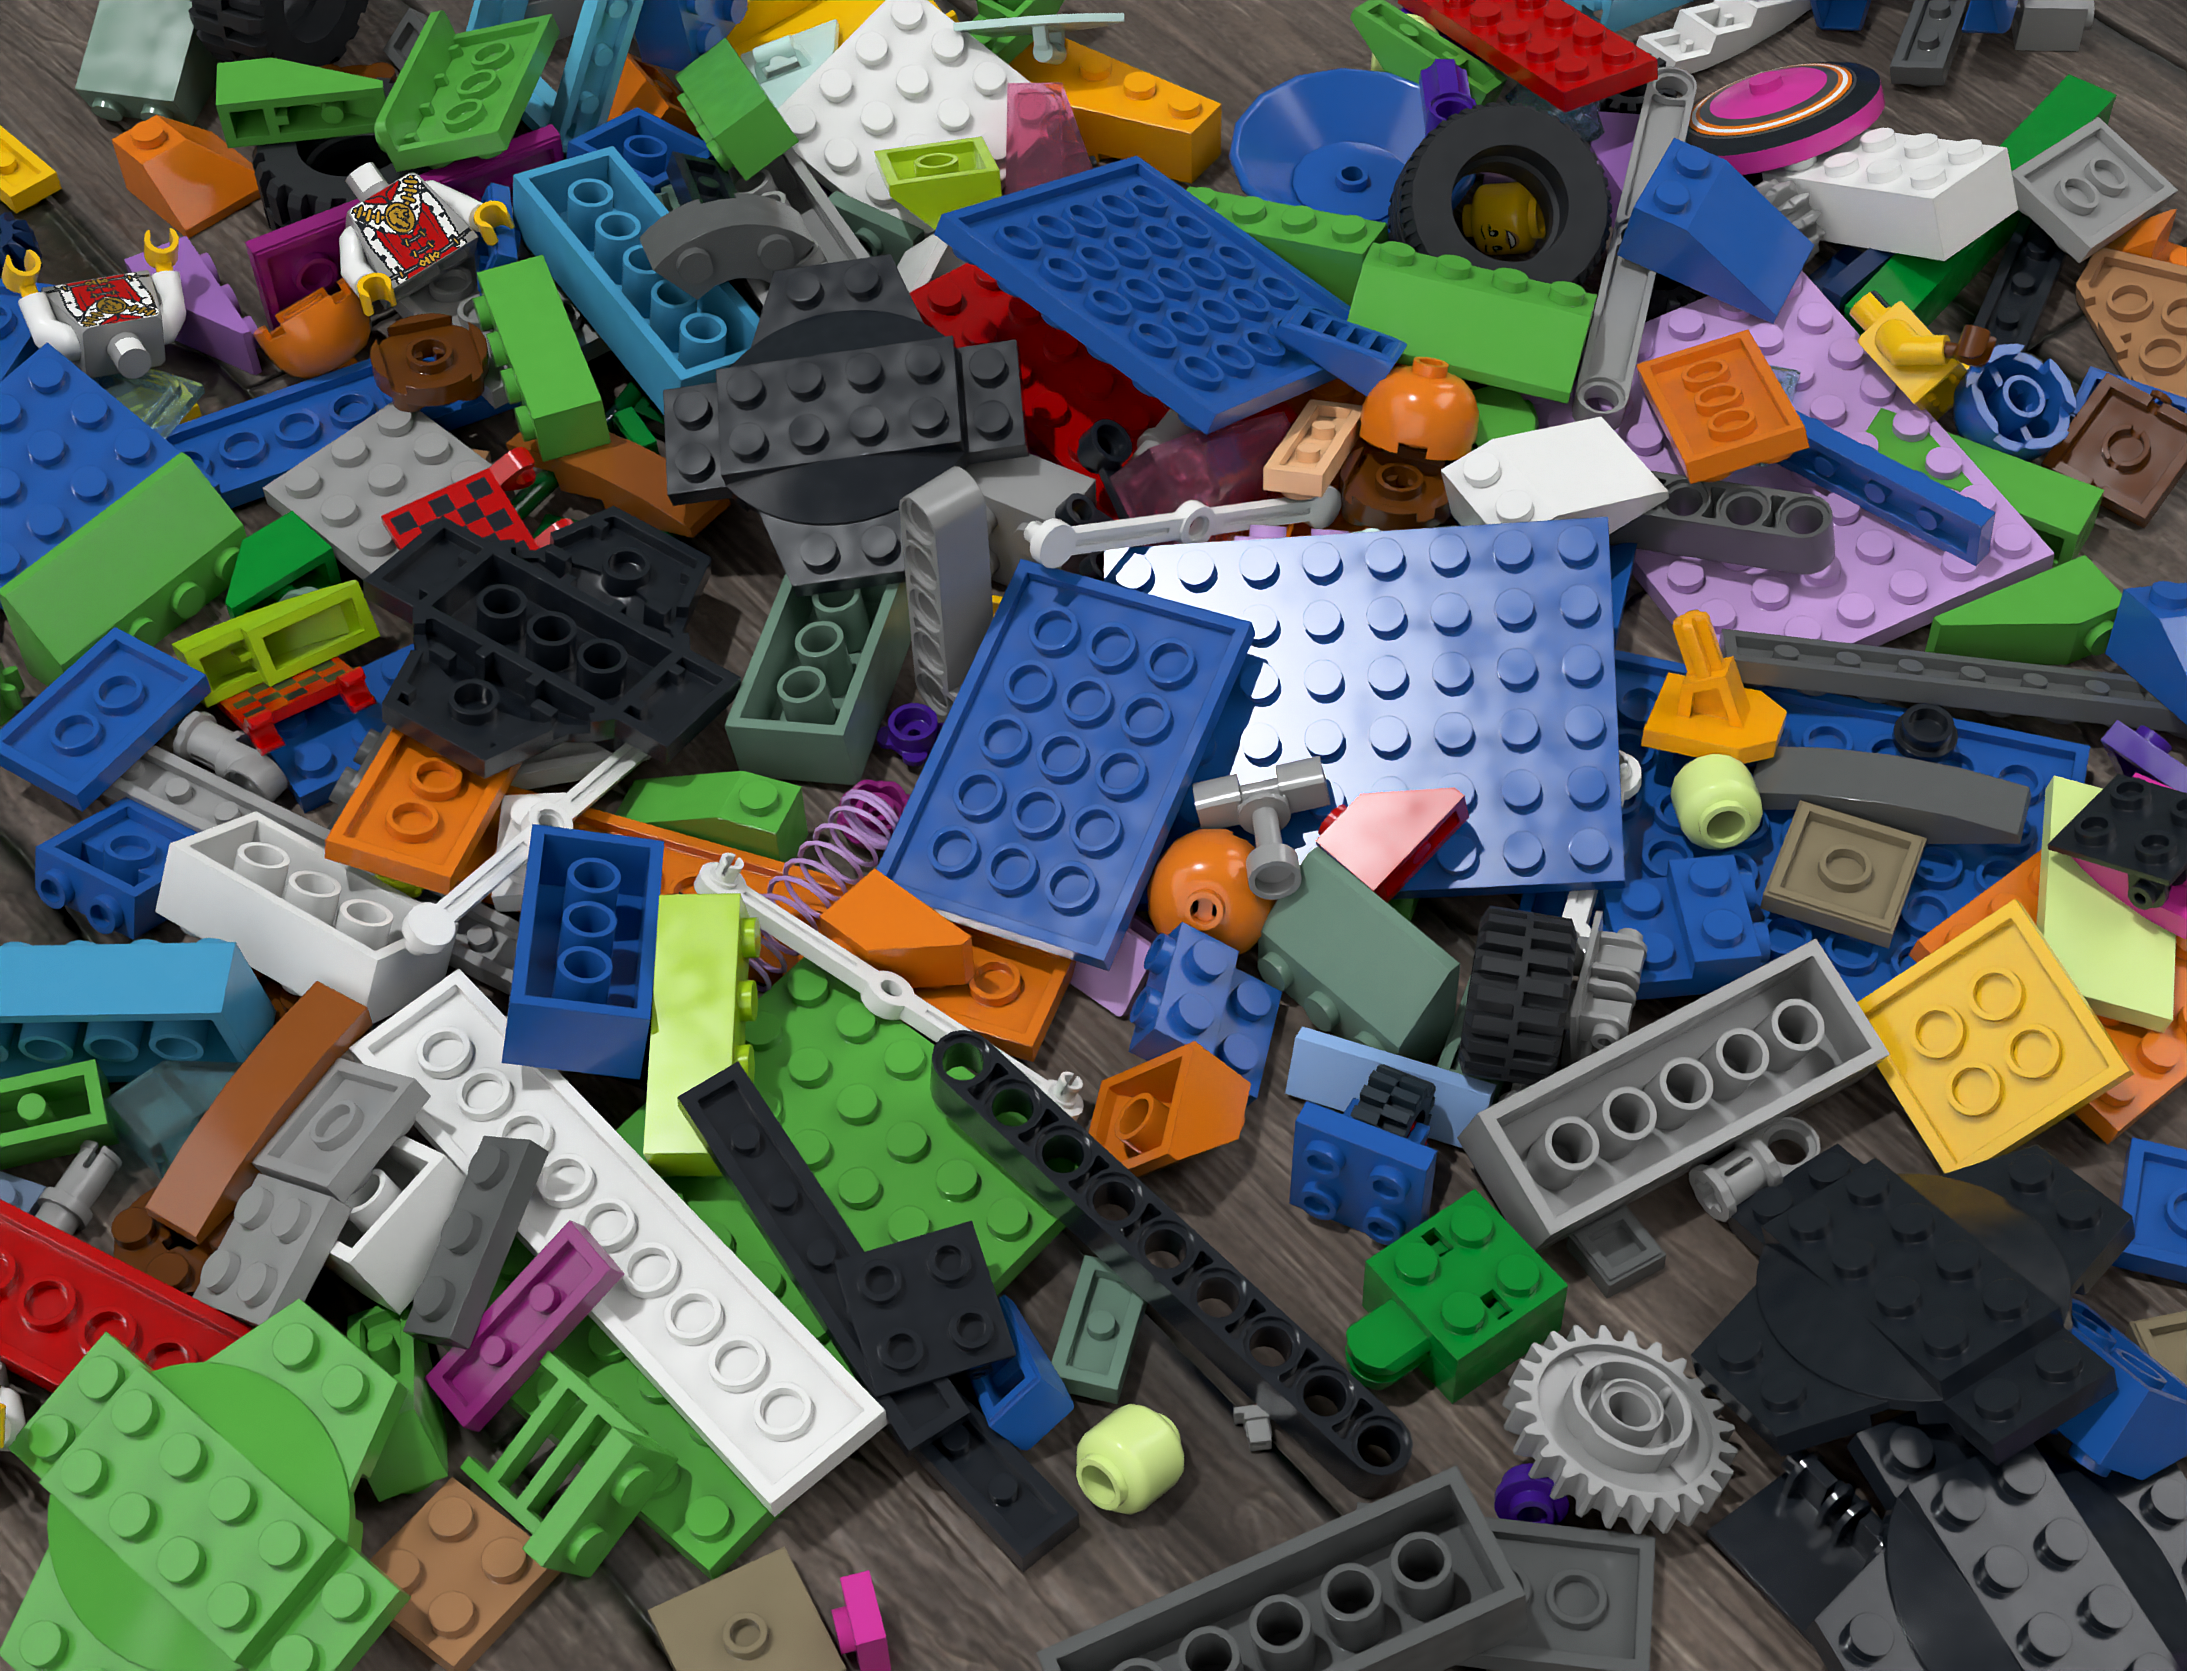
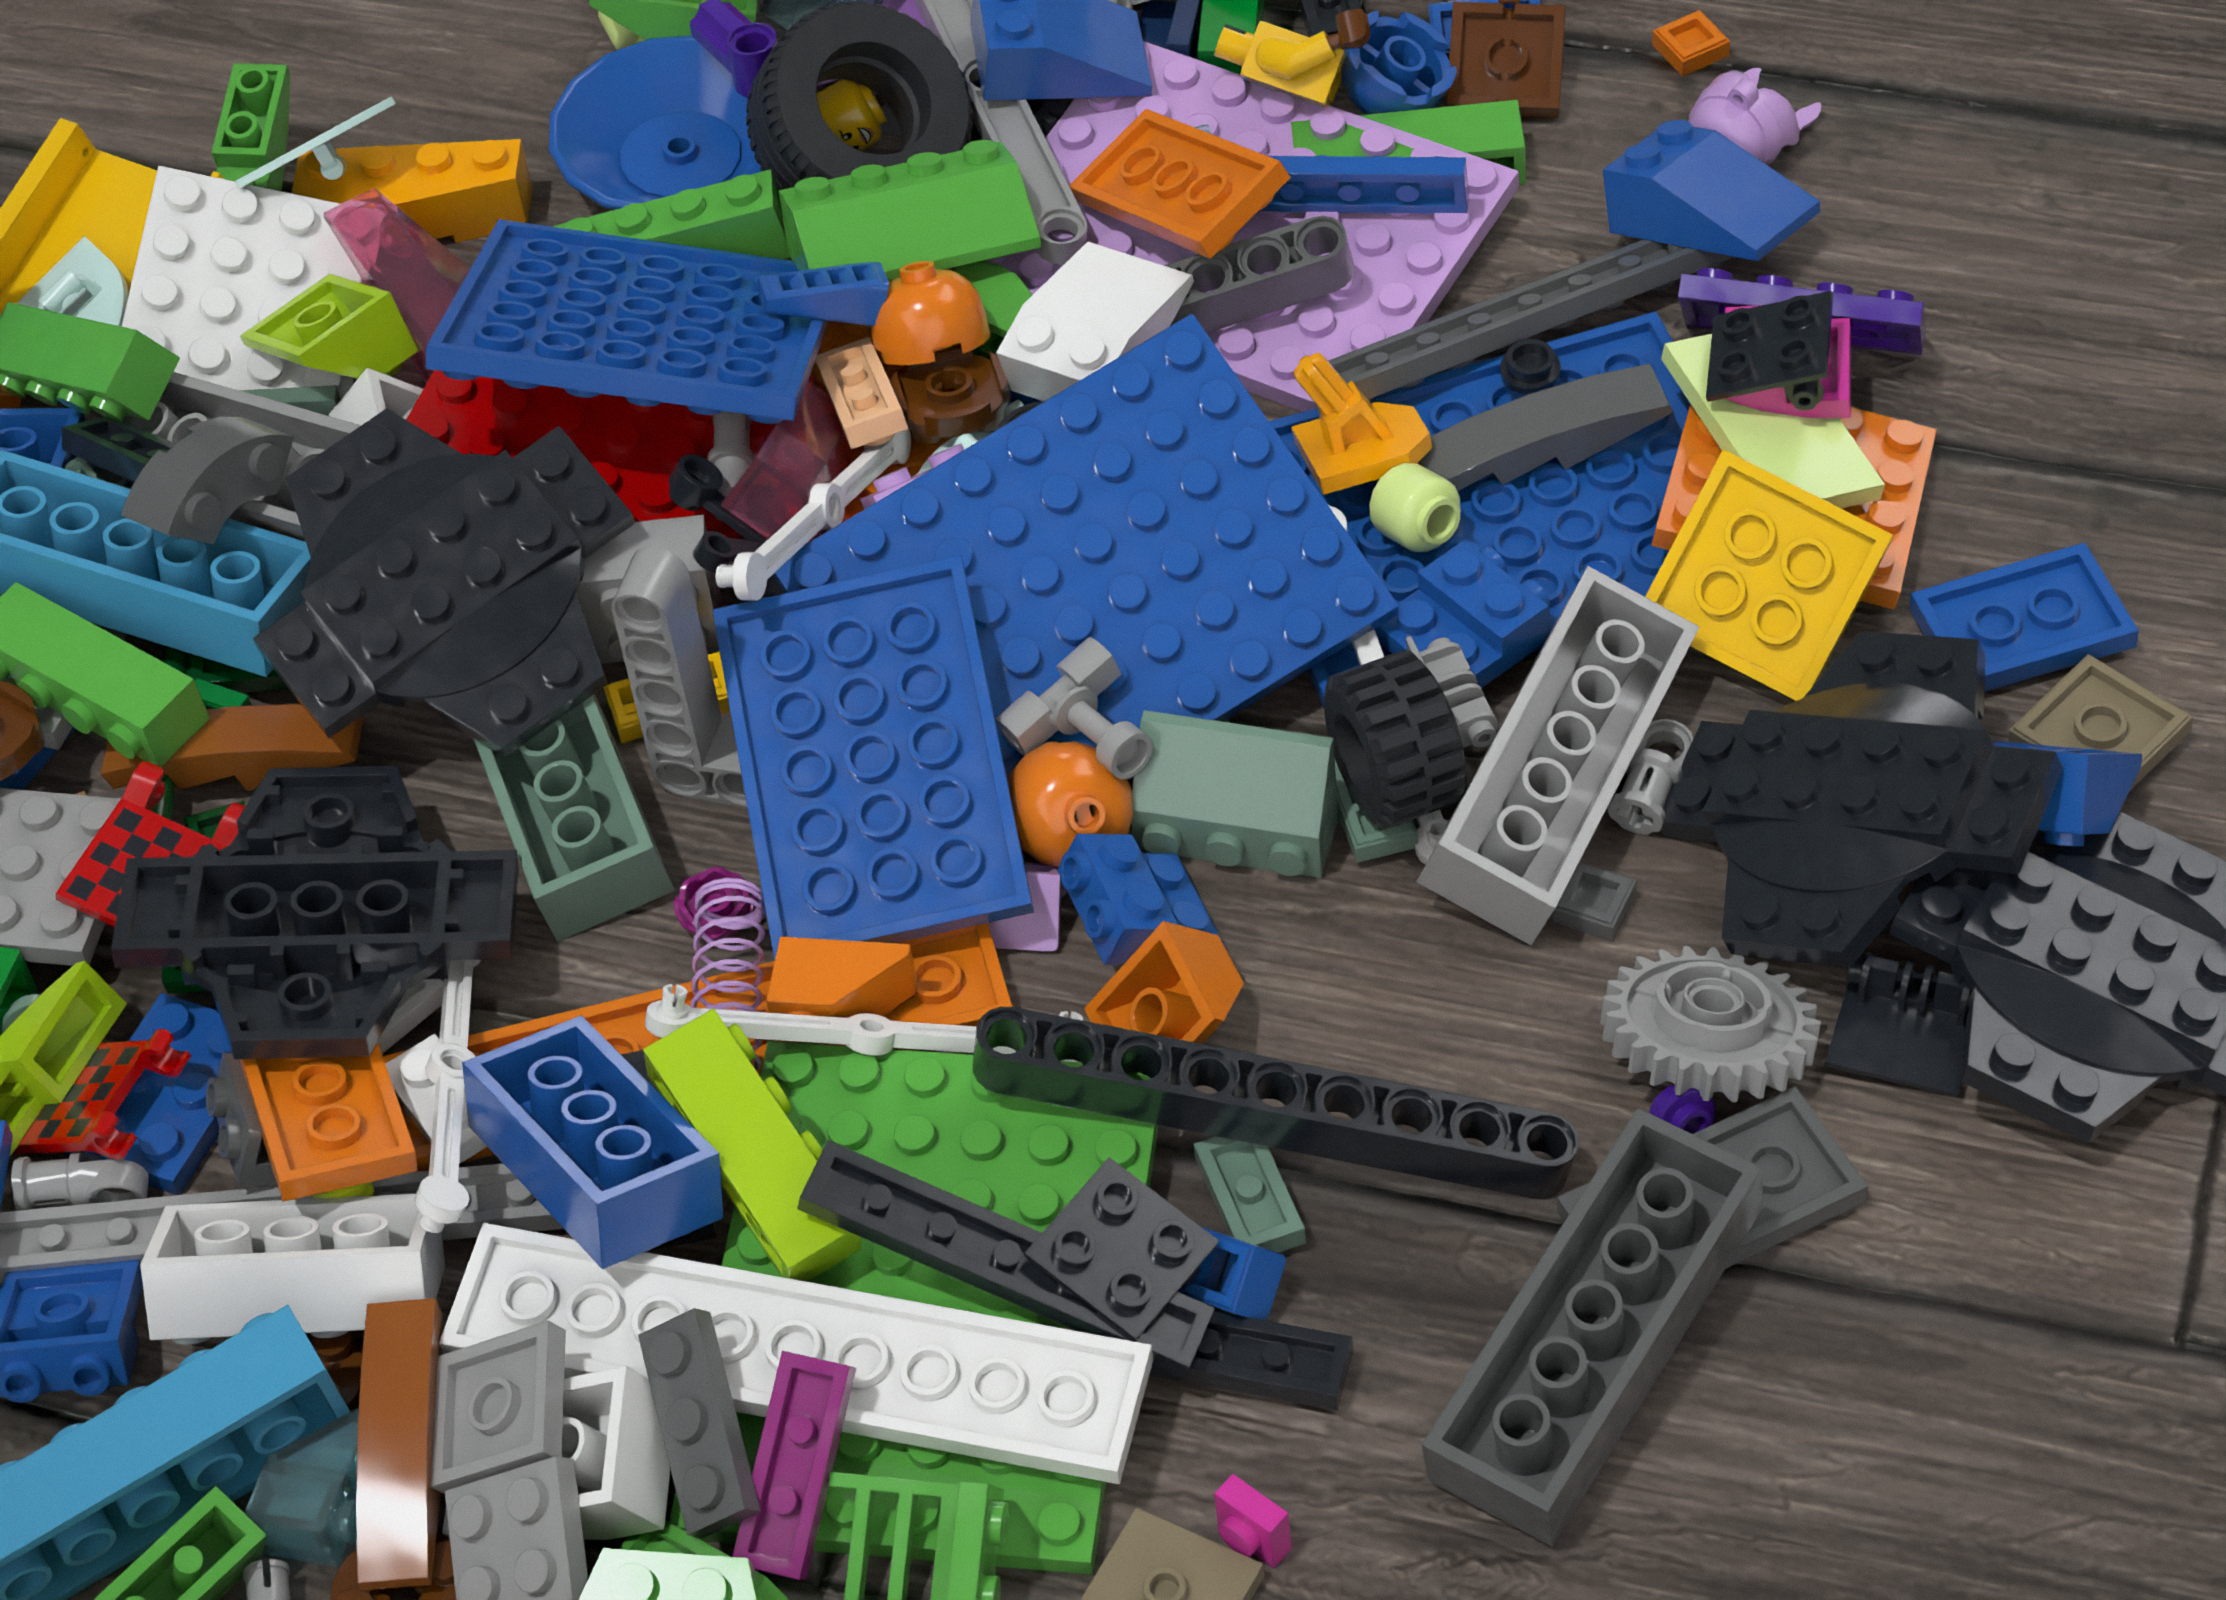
camera: 30 degrees left, 0 degrees up
(724, 808) = (579, 971): bright green slope -> none
(911, 732) = (688, 821): dark purple plate -> none
(1129, 1459) = (1357, 1273): yellowish green head -> none
(1256, 1424) = (1427, 1193): light grey piece -> none
(1335, 1070) = (1327, 877): light blue tile -> none
(1371, 1161) = (1368, 938): blue plate -> none
(1391, 834) = (1192, 667): slope -> none
(1454, 1301) = (1511, 1004): green brick -> none
(1843, 874) = (1553, 510): dark tan plate -> none
(2035, 621) = (1541, 232): bright green slope -> none

